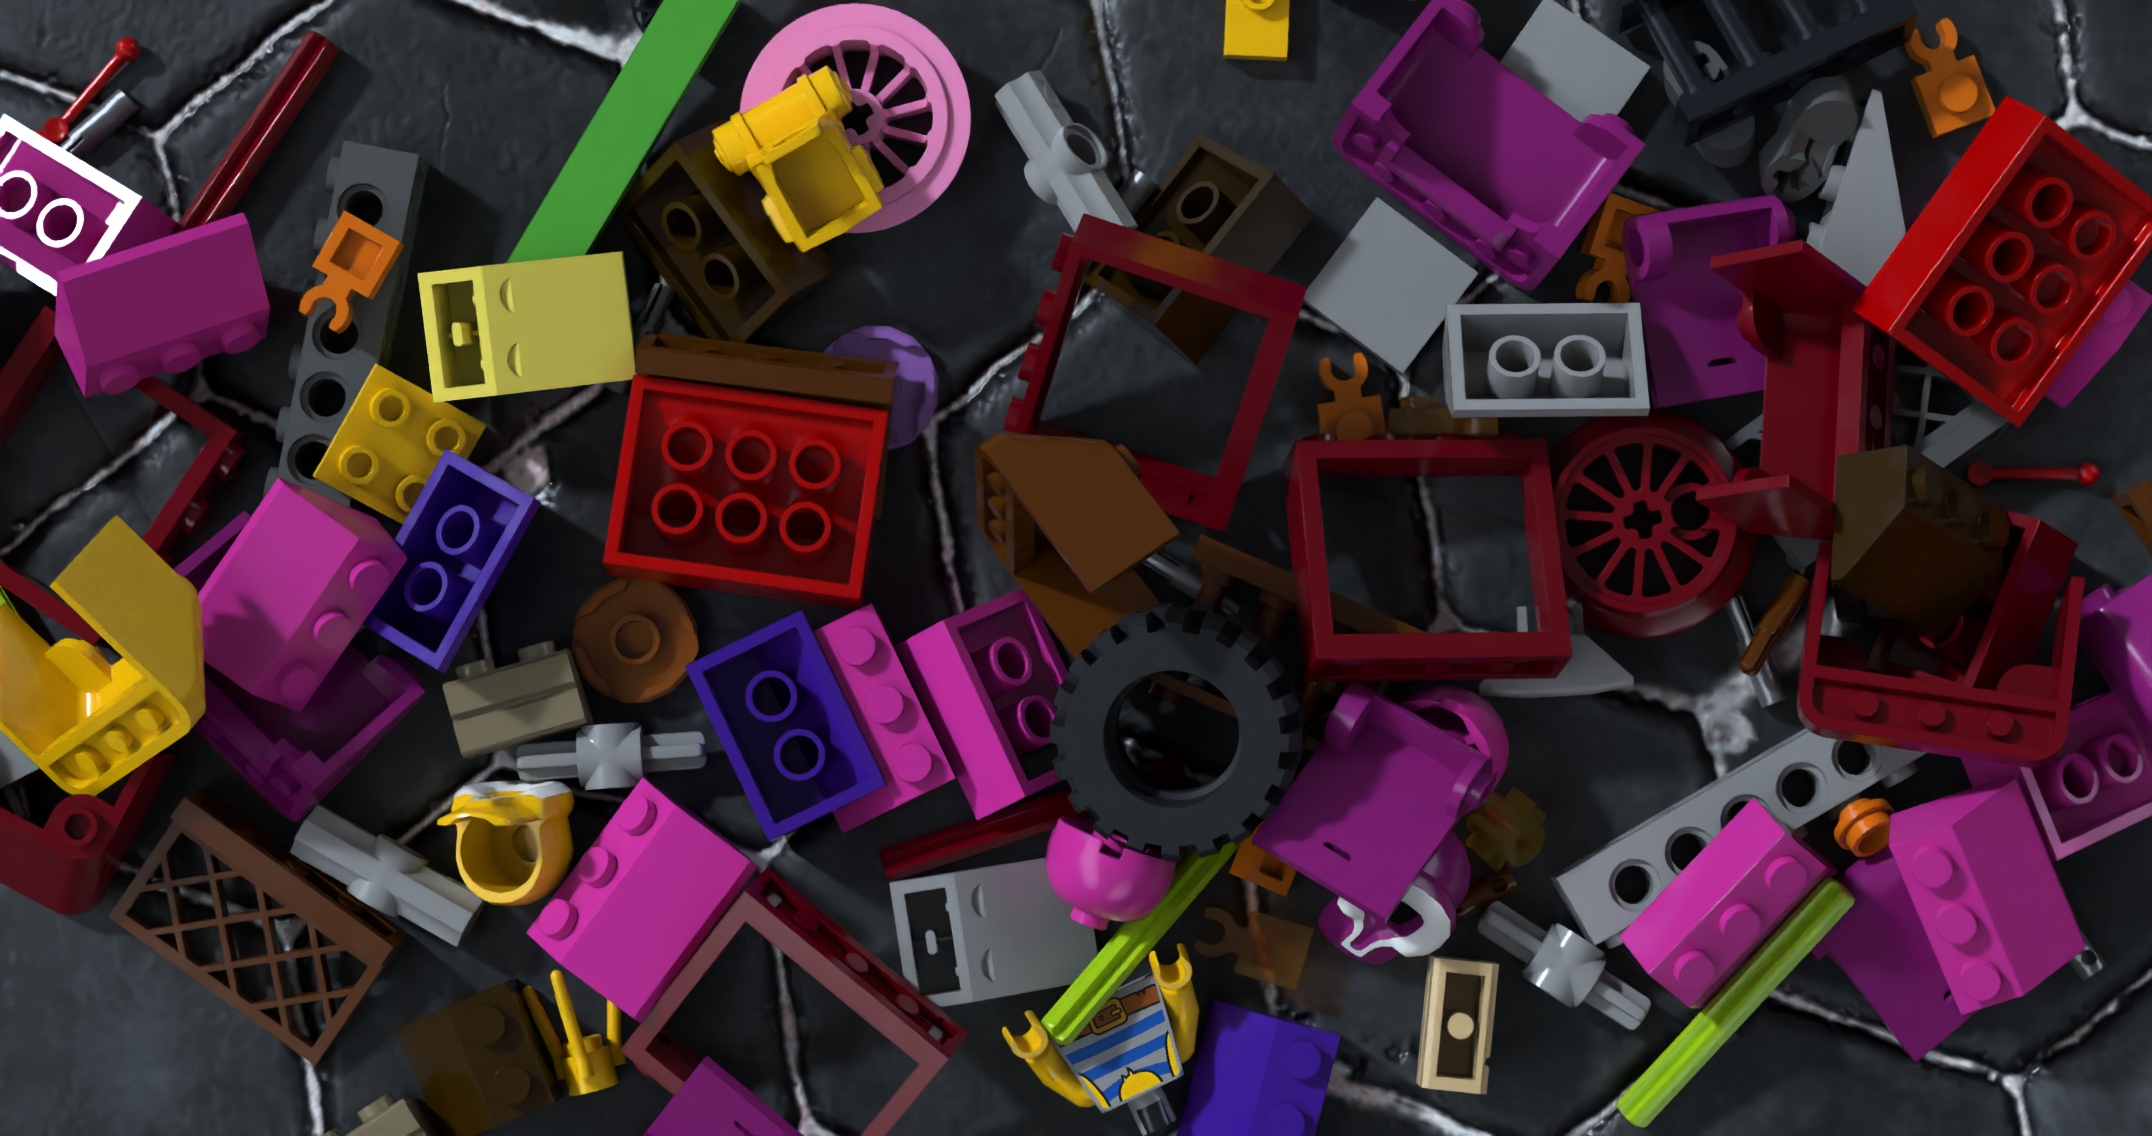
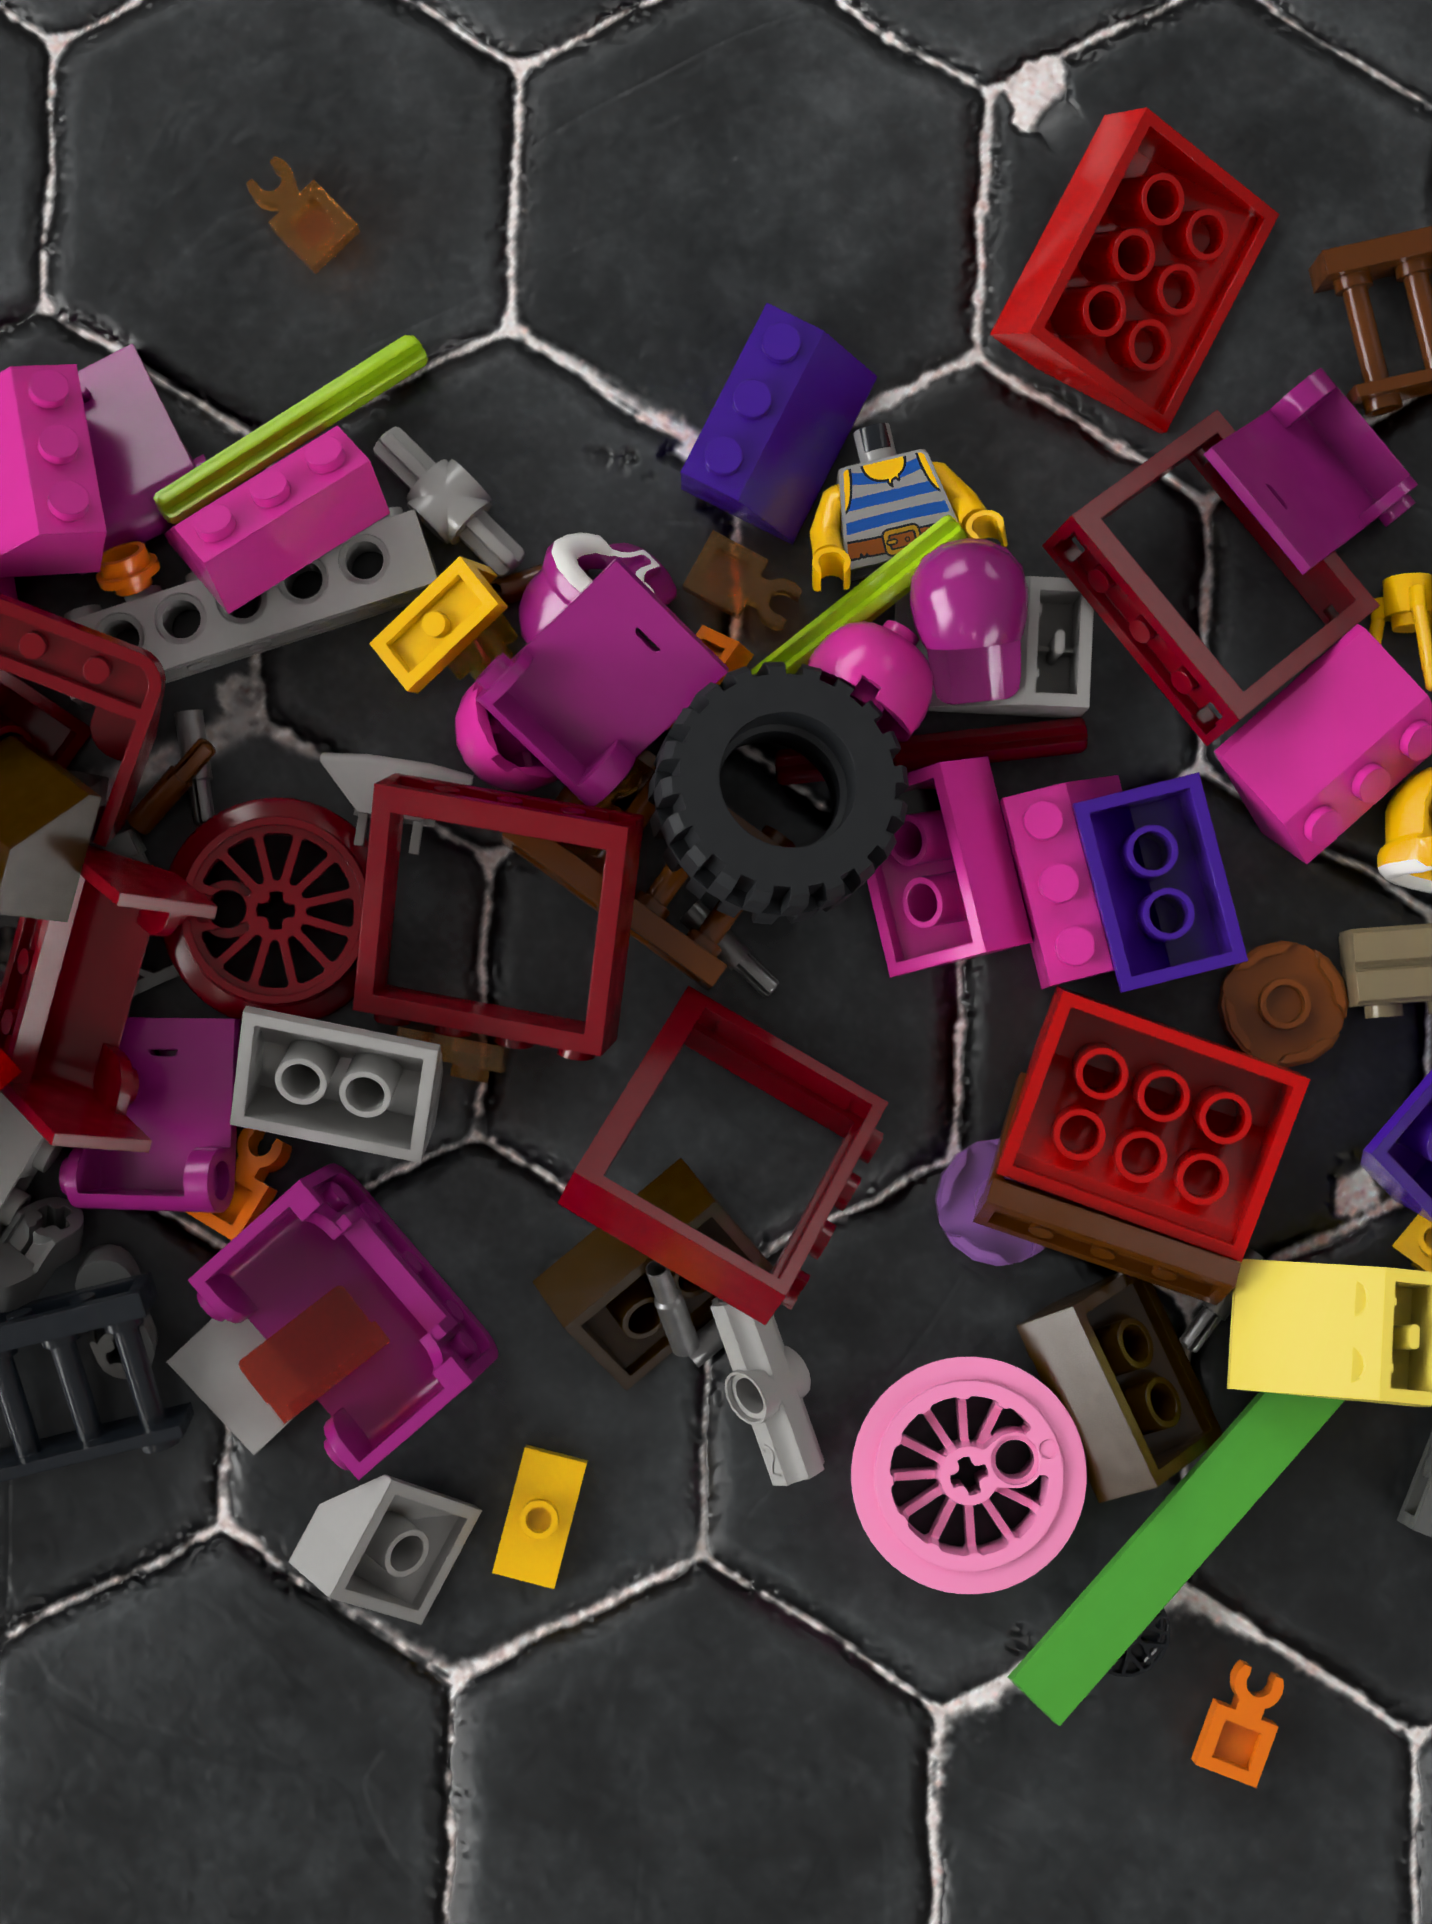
camera: 170 degrees left, 0 degrees up
(611, 756) = (1330, 894): light grey axle -> none
(804, 160) = (1031, 1441): yellow piece -> none
(1024, 944) = (971, 619): none -> magenta piece
(1070, 528) = (840, 1011): reddish brown windscreen -> none
(1172, 212) = (672, 1311): none -> flat silver pin
(1350, 413) = (538, 1075): orange plate -> none
(1388, 286) = (473, 1197): light grey tile -> none
(1457, 1024) = (564, 462): tan brick -> none
(1510, 101) = (312, 1354): none -> clear red panel
(1544, 833) = (439, 623): none -> yellow panel

